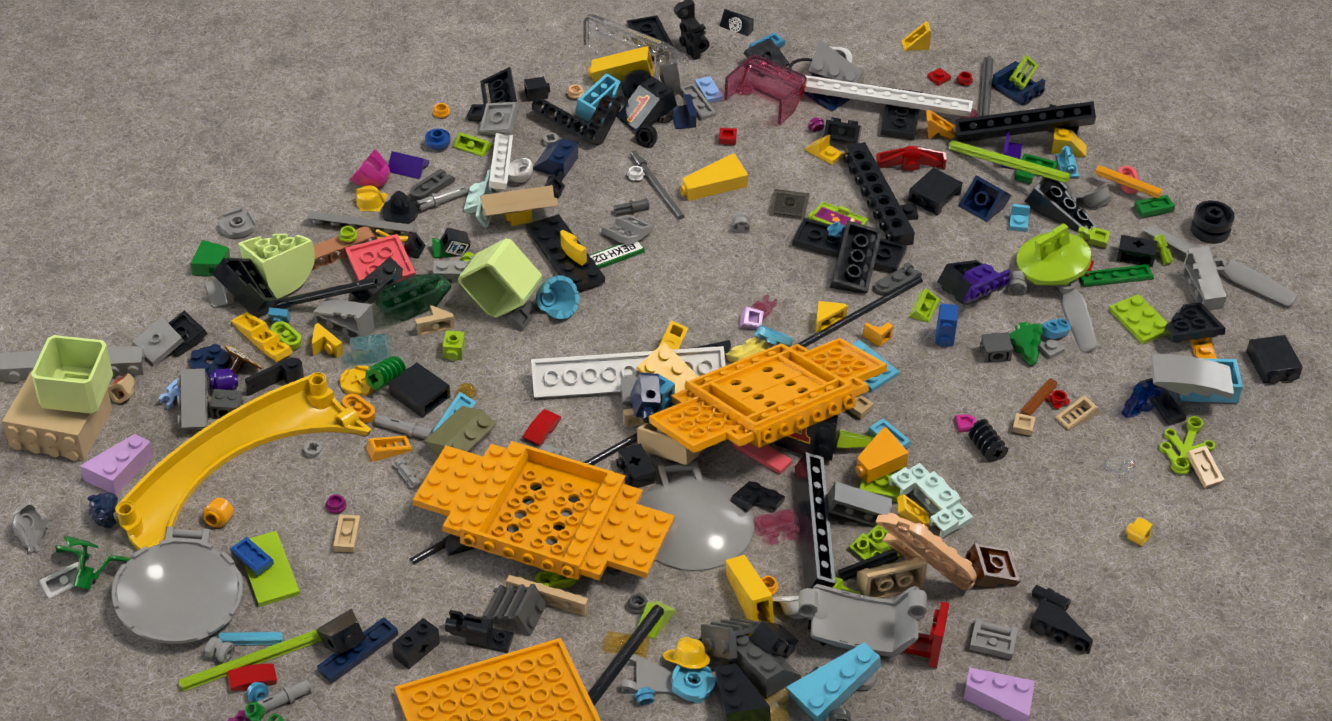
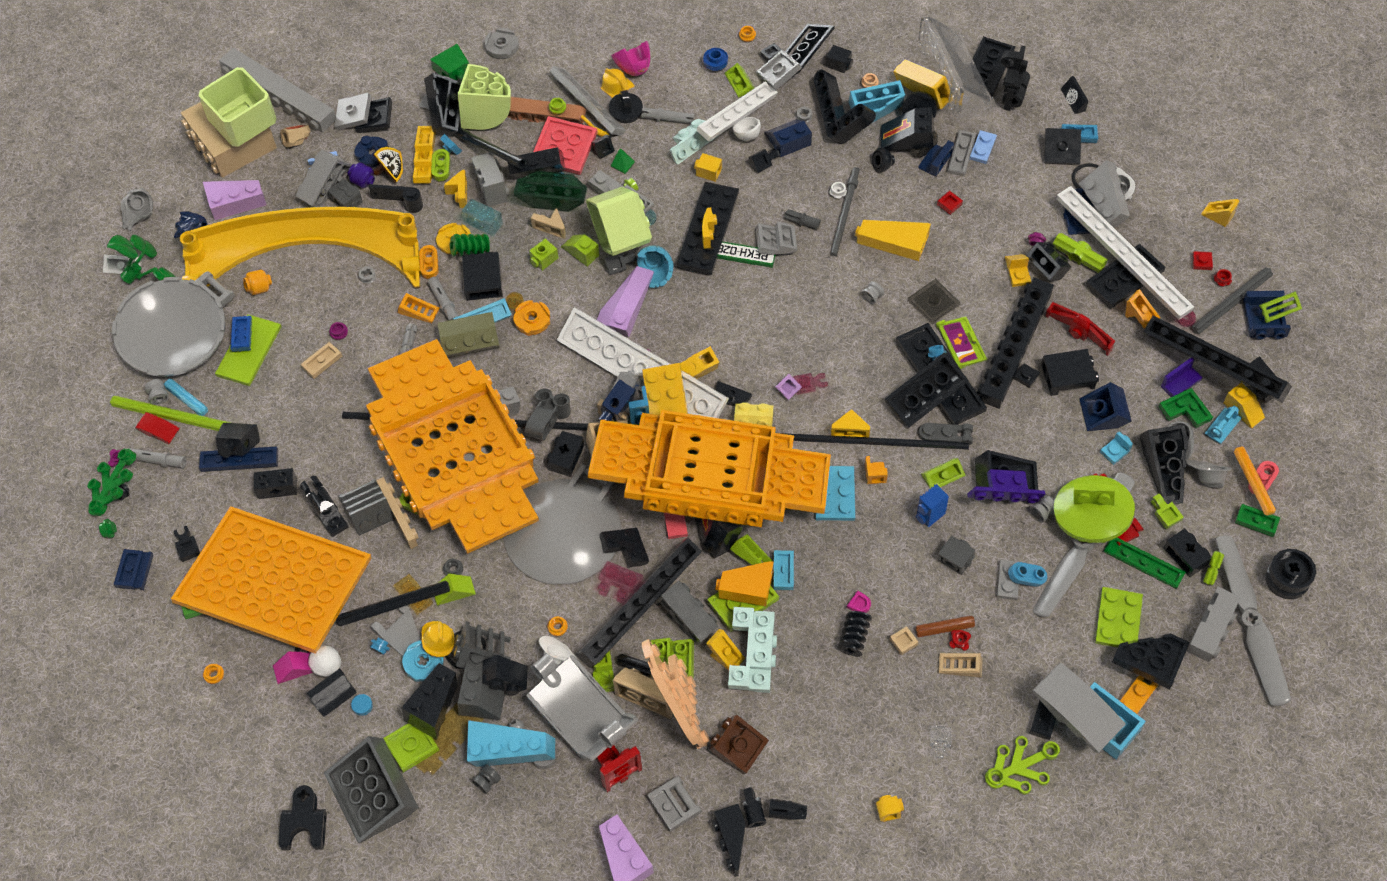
camera: 45 degrees right, 15 degrees up
(257, 691) = (148, 442): dark azure plate -> none
(407, 165) = (672, 67): dark purple panel -> none
(431, 185) = (670, 98): dark grey plate -> none
(455, 242) = (633, 163): black brick -> none
(480, 322) = (582, 248): none -> lime slope
(494, 403) = (535, 326): none -> light orange plate
(518, 200) = (709, 158): tan slope -> none
(541, 426) = (538, 368): red slope -> none
(562, 333) = (625, 304): none -> lavender wedge
(589, 445) = (547, 412): none -> dark grey piece
(670, 76) = (951, 118): flat silver slope -> none
(749, 589) = (533, 622): yellow slope -> none
(770, 79) = (1034, 160): clear pink windscreen -> none
(773, 336) = (782, 416): medium azure plate -> none
(855, 113) = (1080, 252): none -> lime piece
(862, 407) = (790, 526): tan plate -> none
(1009, 161) = (1160, 389): lime axle -> none
(1026, 341) = (988, 568): green rock -> none
(1078, 582) = (787, 810): none -> black hinge
(1139, 397) = (1019, 693): clear blue plate -> none
(1205, 466) = (1011, 795): tan plate -> none
(1274, 359) = (1193, 745): black brick -> none

